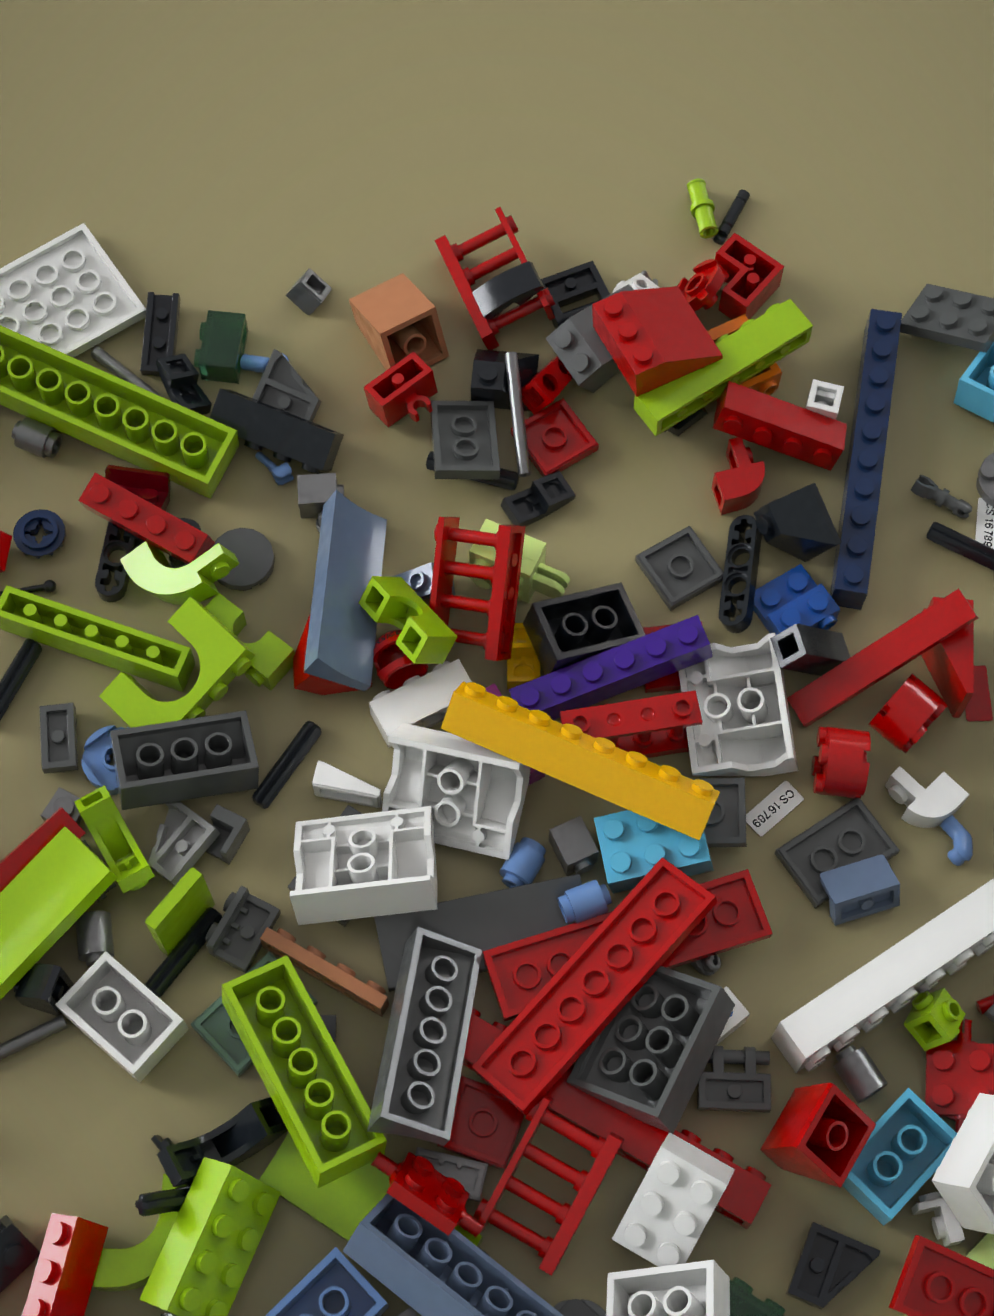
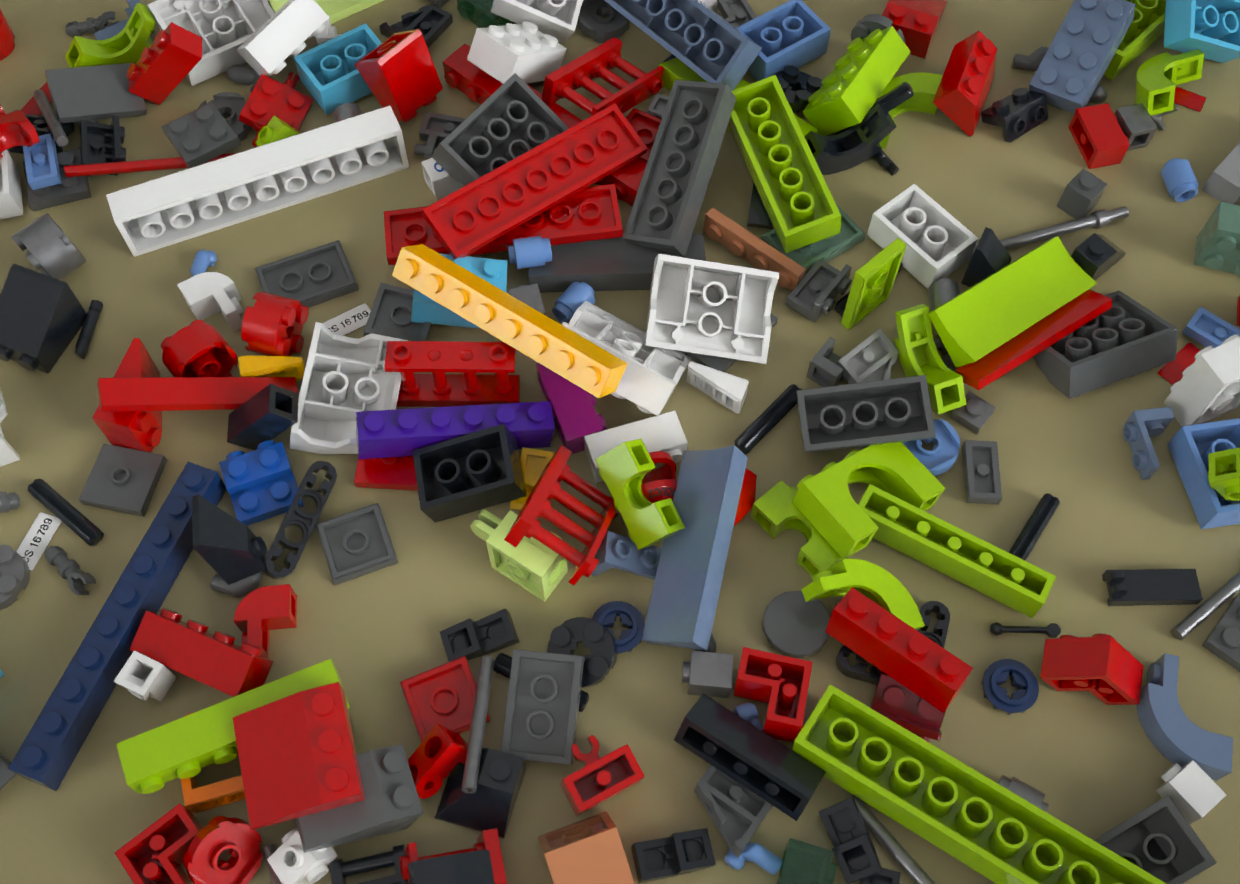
camera: 170 degrees left, 5 degrees down
(251, 488) = (781, 684): none -> red brick
(274, 1252) = (794, 80): none -> black plate
(332, 358) = (673, 855): none -> black slope
(398, 521) = (629, 618): none -> dark blue gear
(422, 497) = (593, 635): none -> black plate
(428, 1193) = (691, 65): red plate -> none
(843, 716) = (271, 366): none -> yellow slope
(860, 889) = (298, 242): sand blue panel -> none
(926, 579) = (123, 480): none -> dark grey plate

